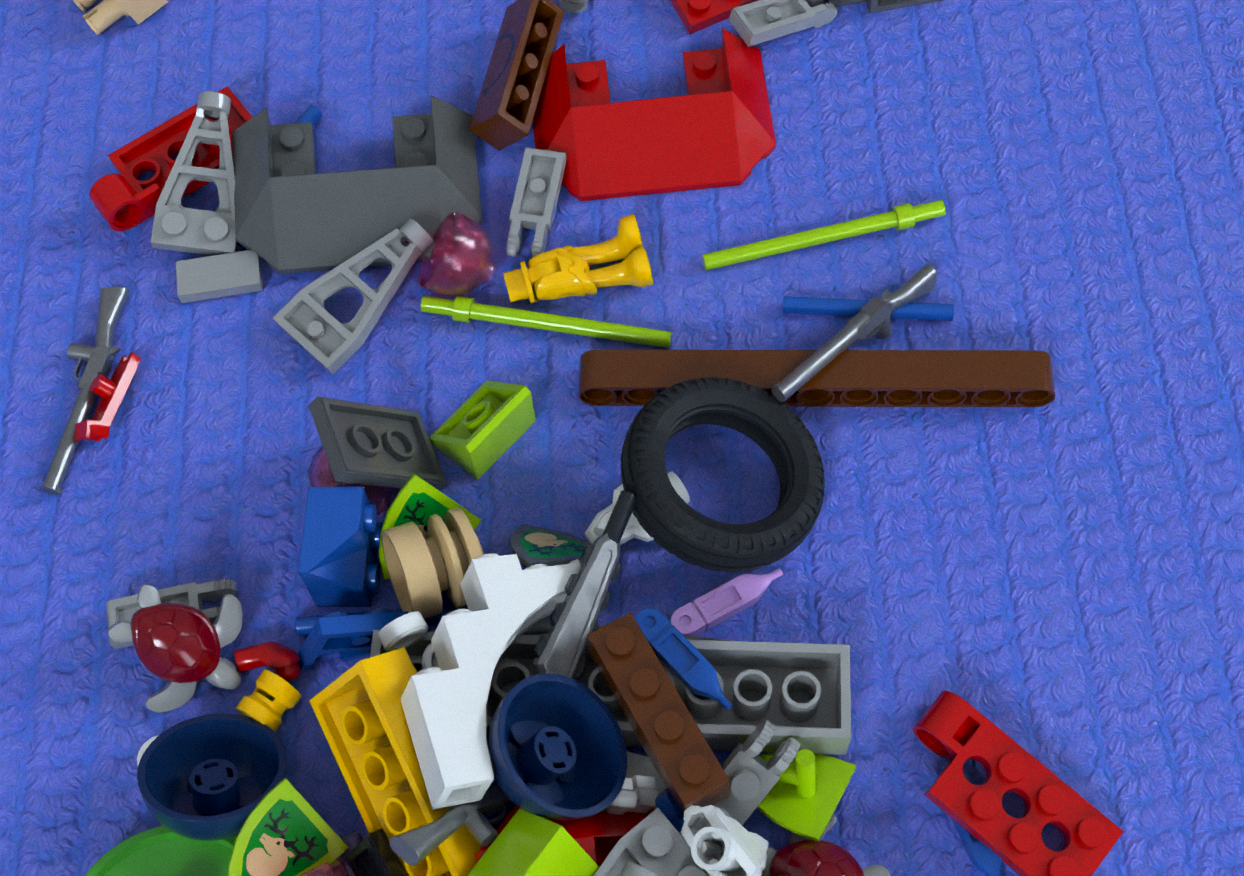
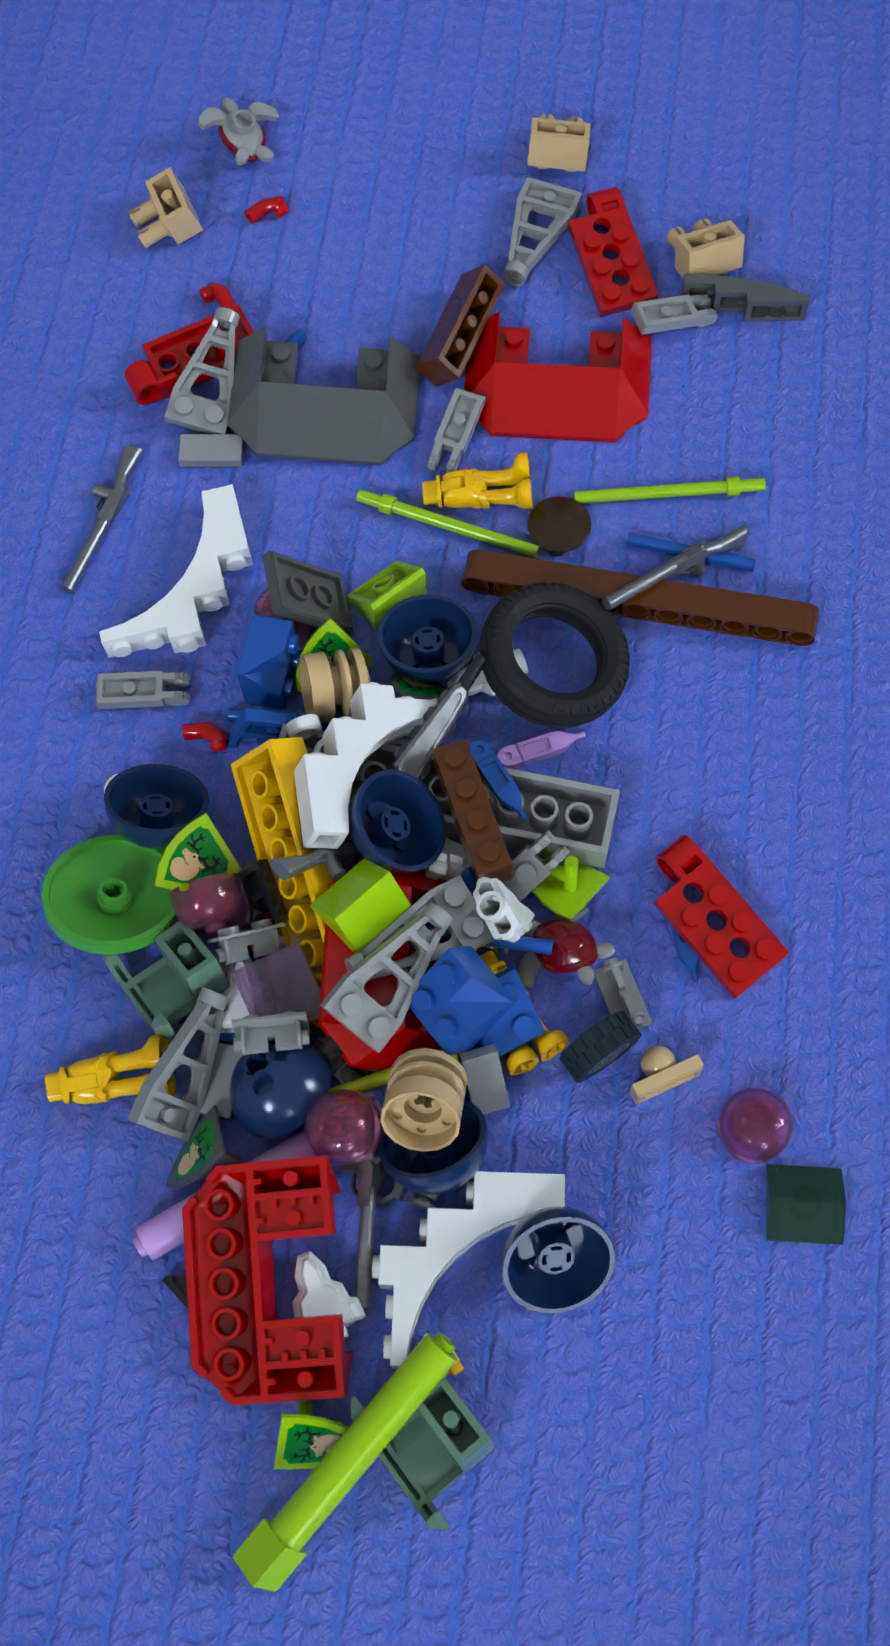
camera: 10 degrees right, 5 degrees up
(112, 394) = (120, 525): red piece -> none
(181, 645) = (146, 713): dark red animal -> none
(198, 76) = (218, 293): none -> red arm
(232, 461) = (201, 588): none -> white arch
(269, 700) = (202, 761): yellow wheel -> none
(318, 330) = (278, 503): light grey plate -> none
(458, 258) = (390, 465): clear pink cylinder -> none
(549, 478) = (427, 637): none -> dark blue piece
(691, 301) = (559, 525): none -> dark brown dish

